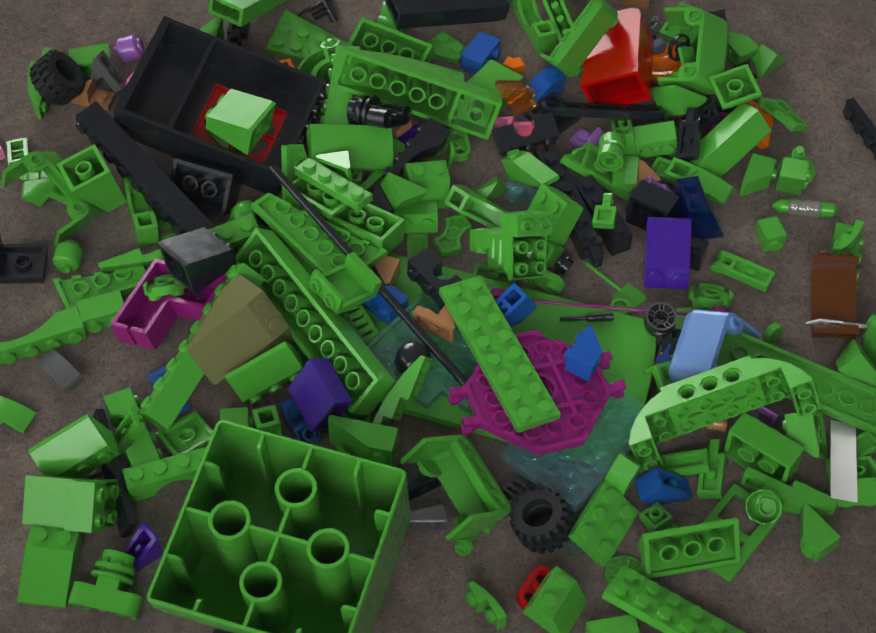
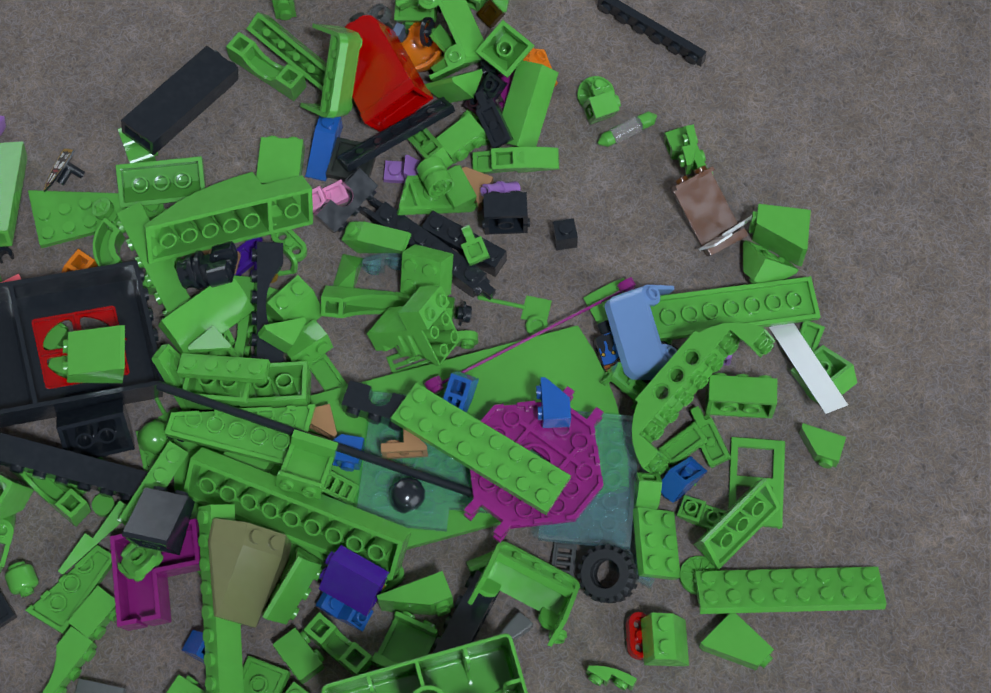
camera: 30 degrees left, 15 degrees up
(405, 390) = (423, 532): bright green slope -> none
(447, 47) = (207, 144): bright green wing -> none
(449, 241) = (348, 350): bright green tile -> none
(479, 52) = (244, 133): blue brick -> none
(514, 64) = (282, 128): orange piece -> none
(516, 96) = (313, 165): clear orange slope -> none
(591, 317) = (524, 354): black piece -> none
(661, 311) = (592, 321): black wheel -> none
(667, 253) = (549, 254): dark purple slope -> none
(696, 205) = (544, 194): clear blue slope -> none
(709, 296) = (616, 270): bright green plate -> none
(743, 270) = (614, 226): bright green plate -> none
(758, 174) = (568, 118): bright green slope -> none
(764, 506) = (772, 447): bright green hair -> none
(770, 234) = (616, 175): bright green brick -> none
(773, 333) = (676, 274): bright green tile -> none
(784, 113) = (553, 41): bright green wing -> none
(793, 496) = (787, 422): bright green slope -> none
(808, 432) = (771, 364): bright green slope -> none

